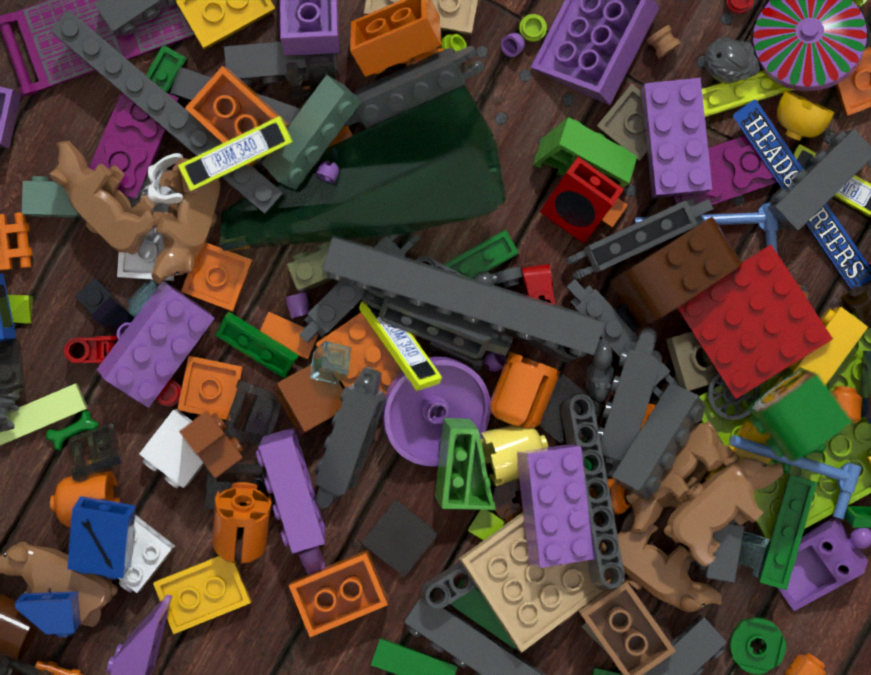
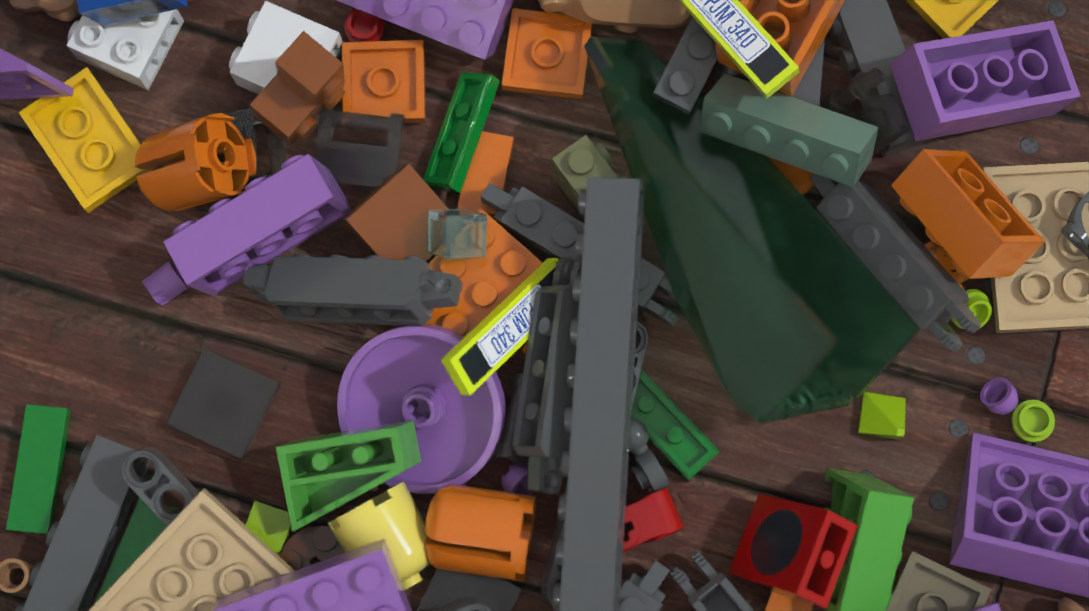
camera: 80 degrees right, 10 degrees down
(298, 304) = (533, 175): medium lavender hose -> none
(327, 172) = (737, 171): medium lavender hinge -> none
(338, 593) = (121, 330): orange brick -> none
(507, 120) = (882, 416): none -> lime slope

